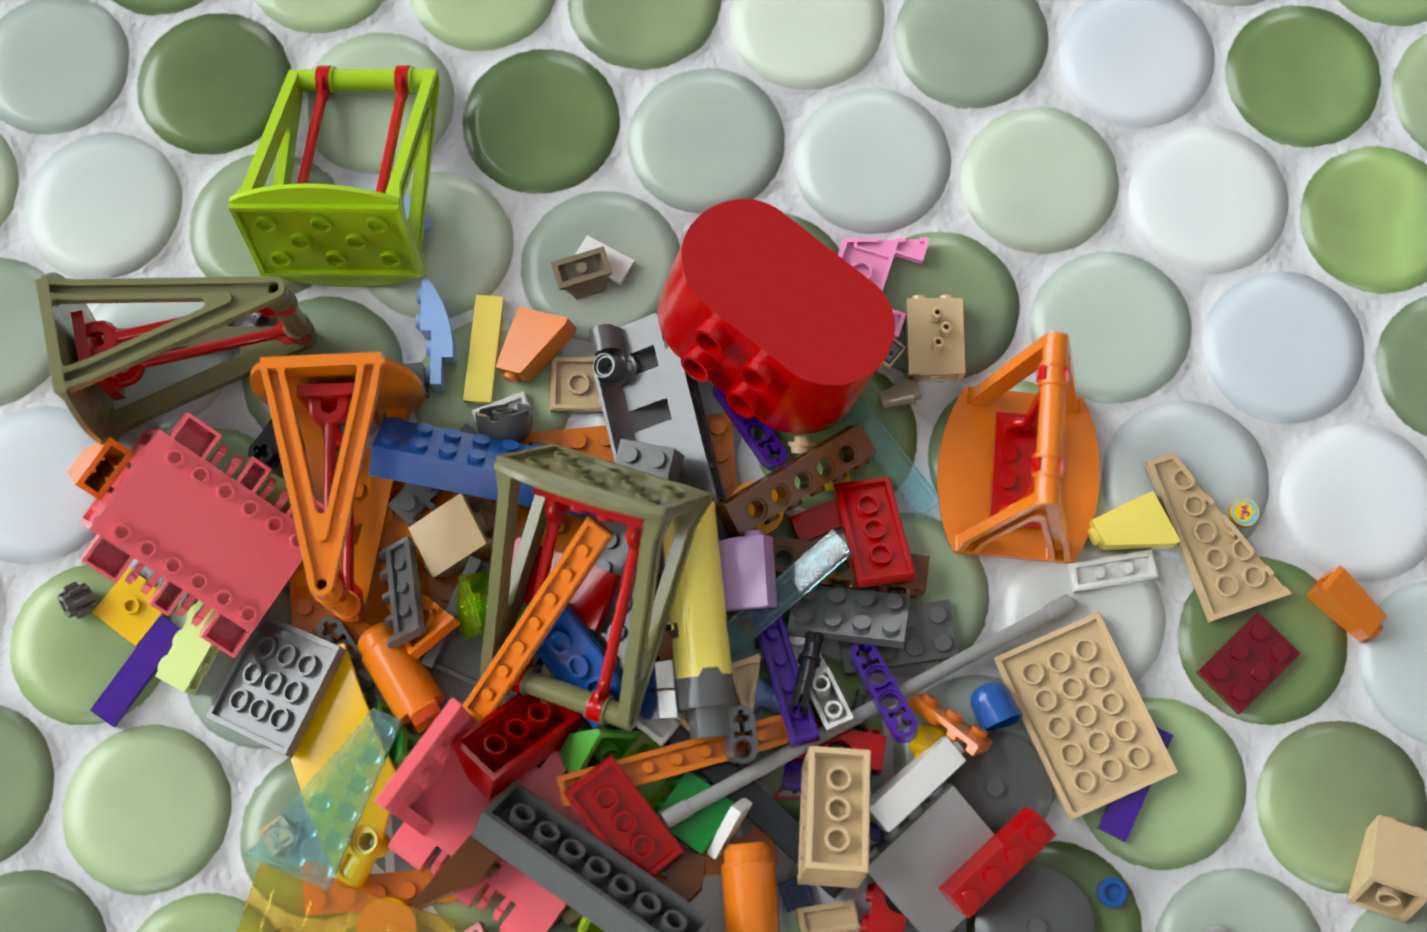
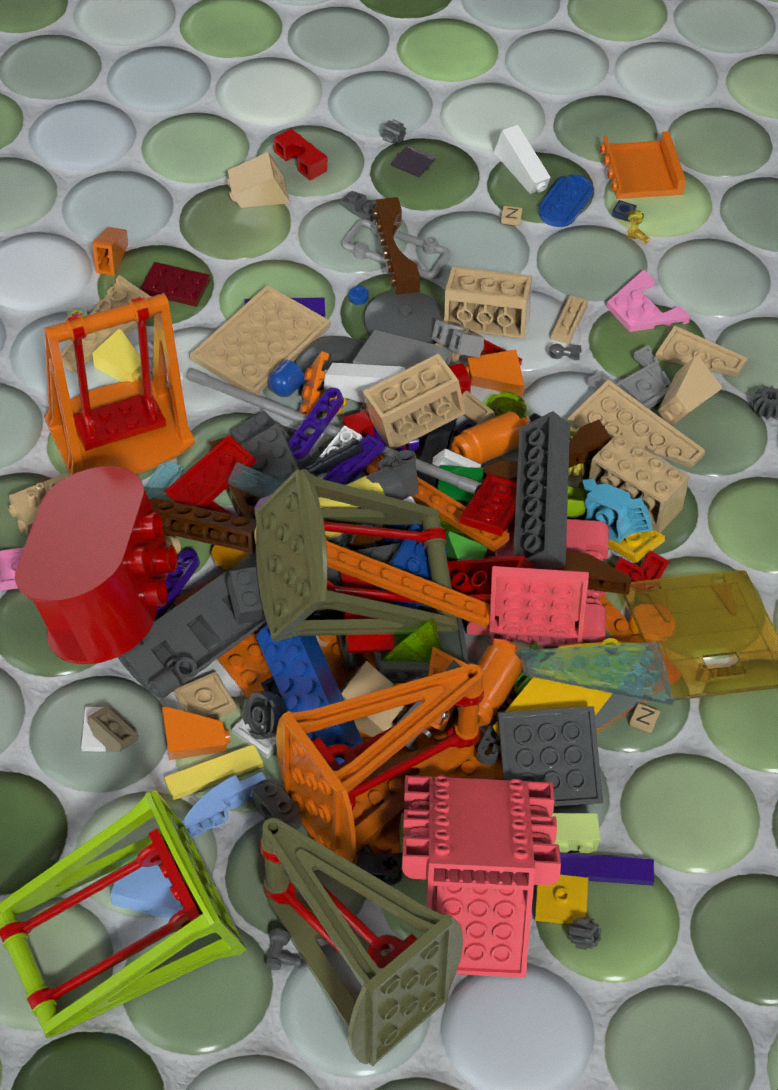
camera: 125 degrees left, 25 degrees down
(99, 466) = (481, 963): orange slope -> none
(997, 861) = (383, 328): red brick -> none

